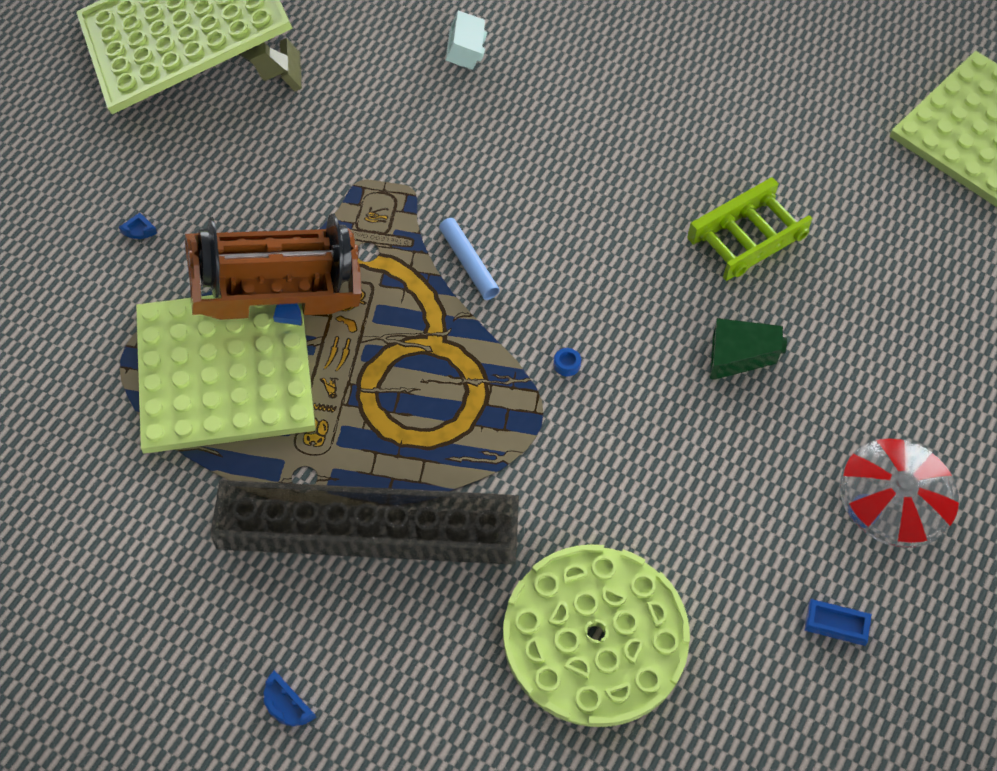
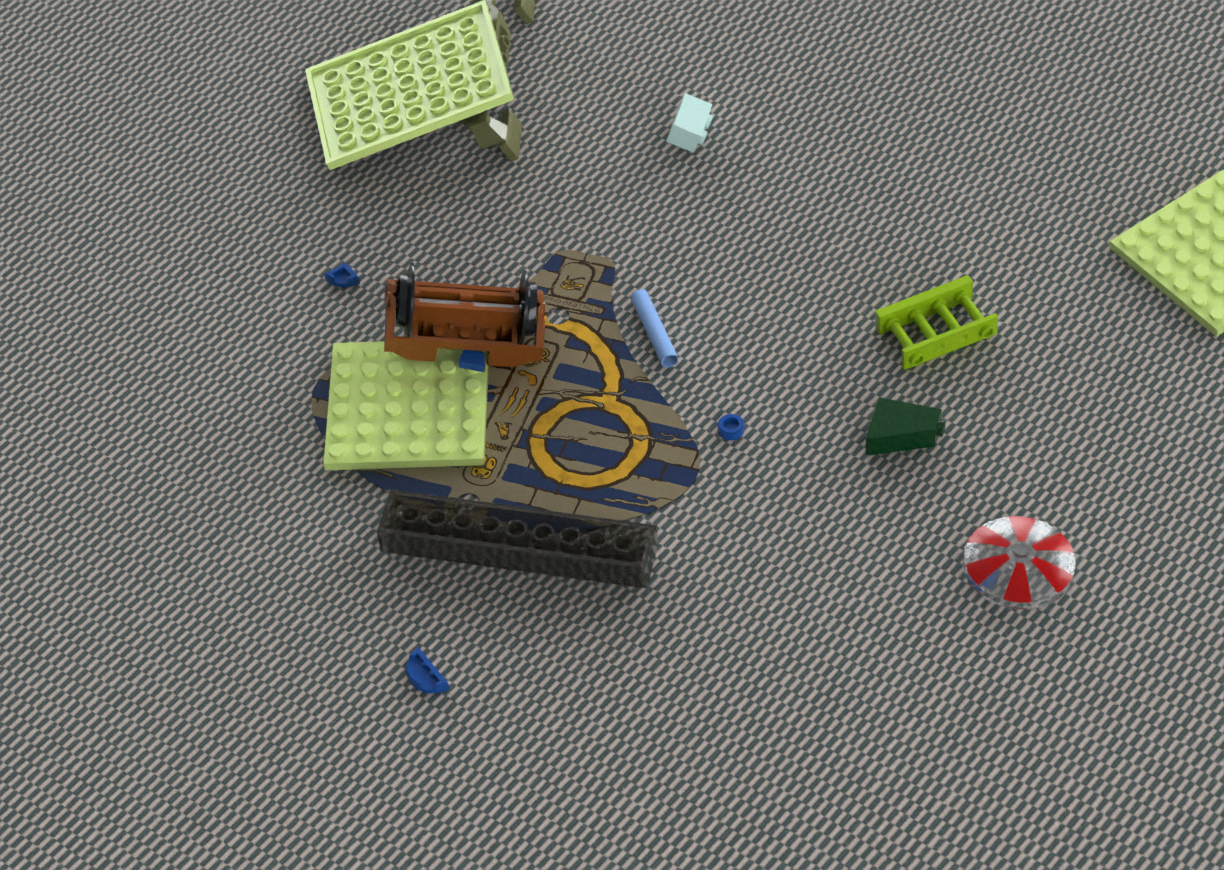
camera: 15 degrees right, 10 degrees down
(585, 677) = (685, 680): yellowish green plate -> none
(838, 622) = (932, 661): blue tile -> none

